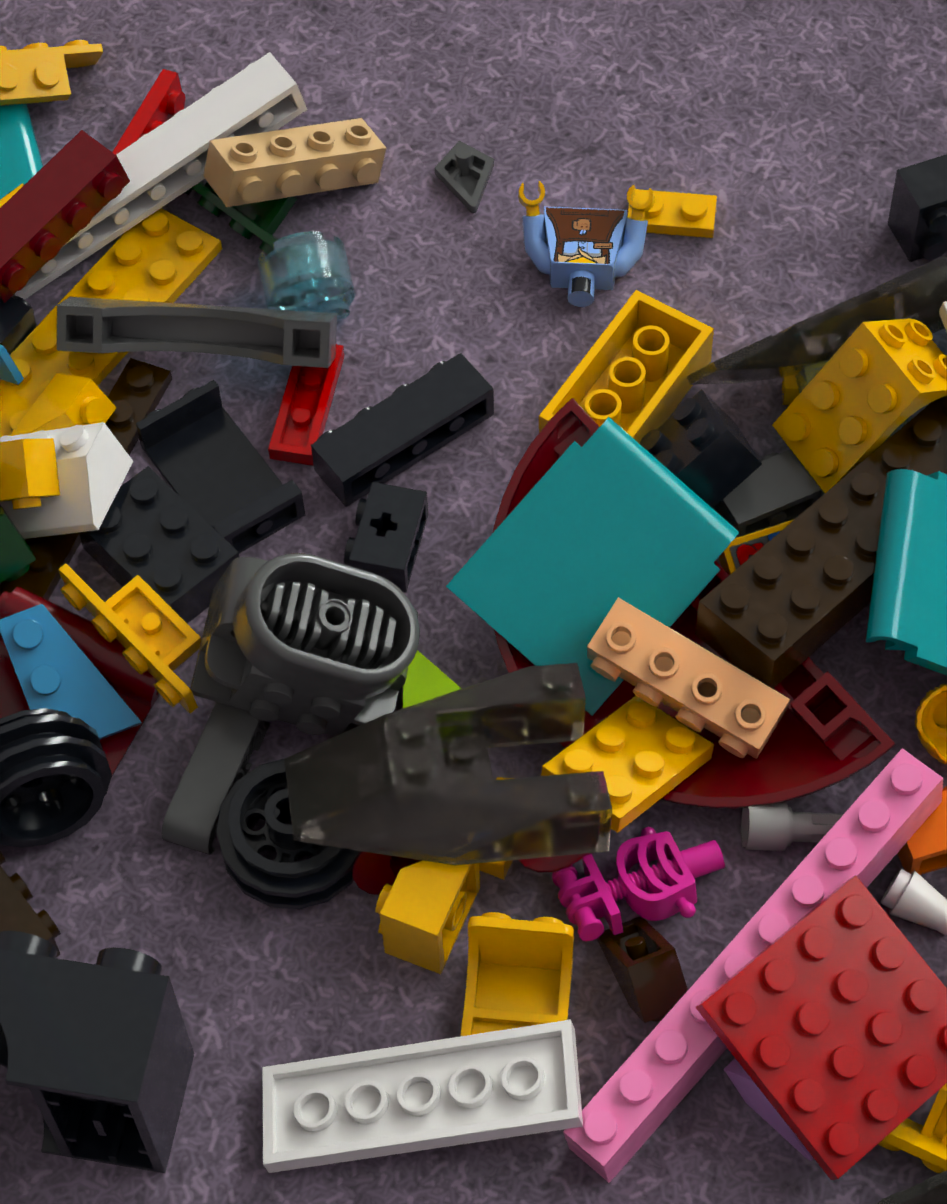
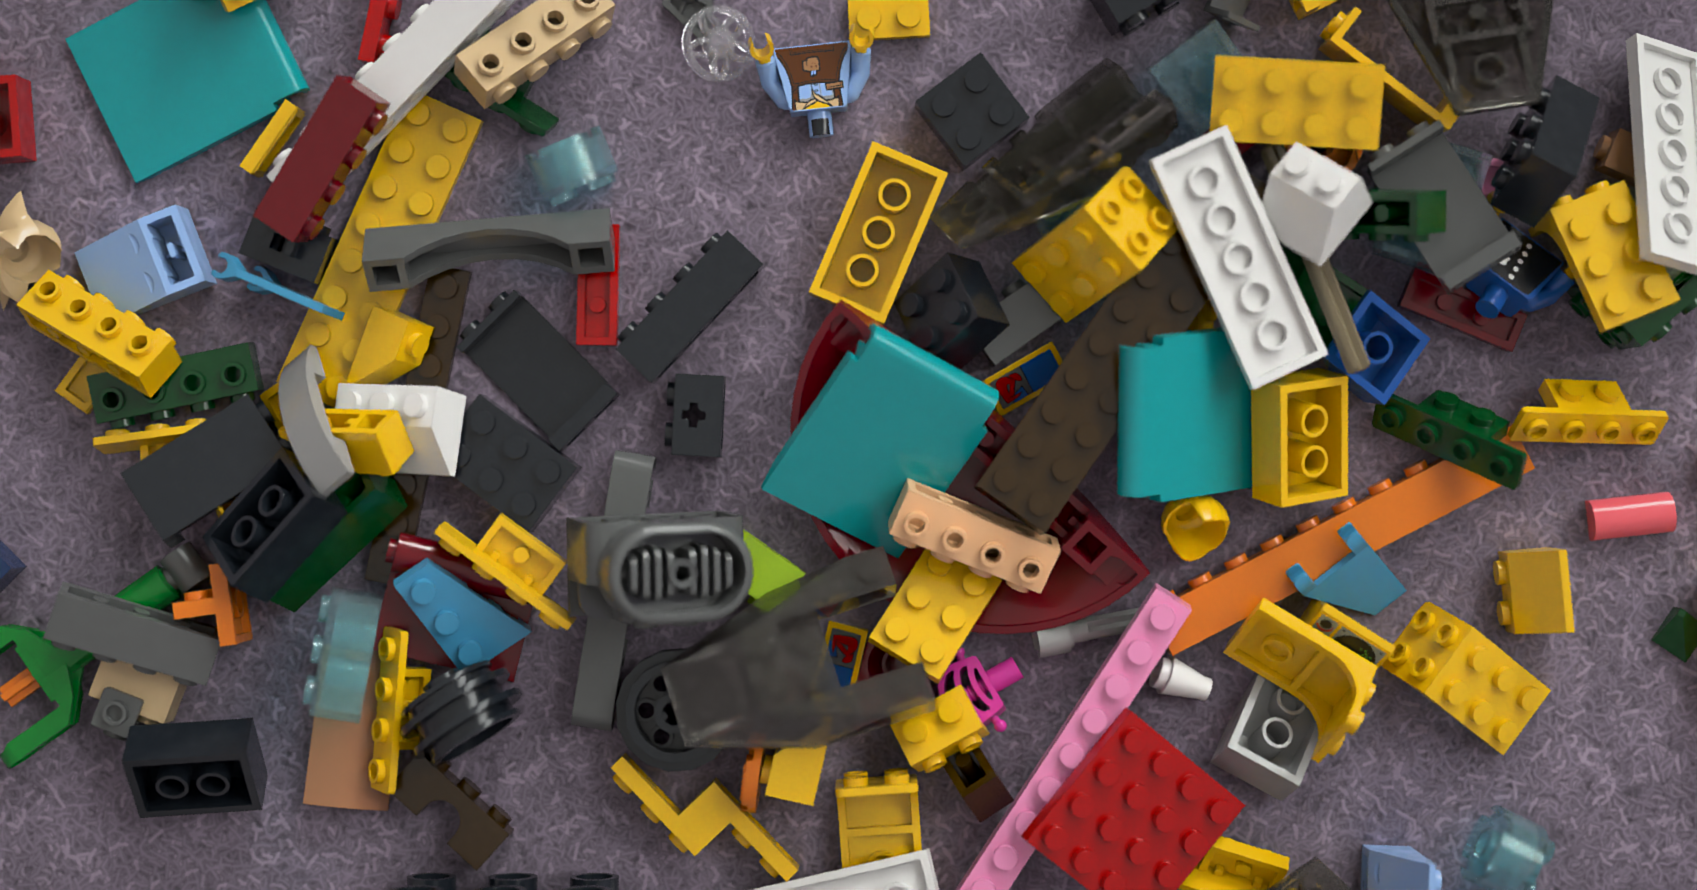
camera: 15 degrees left, 30 degrees up
(296, 965) = (703, 818): none -> yellow bracket
(362, 914) = (750, 780): none -> orange tile
(486, 205) = (718, 43): none -> clear wheel
(612, 899) = (941, 733): none -> yellow bracket
(747, 293) = (971, 111): none -> black brick

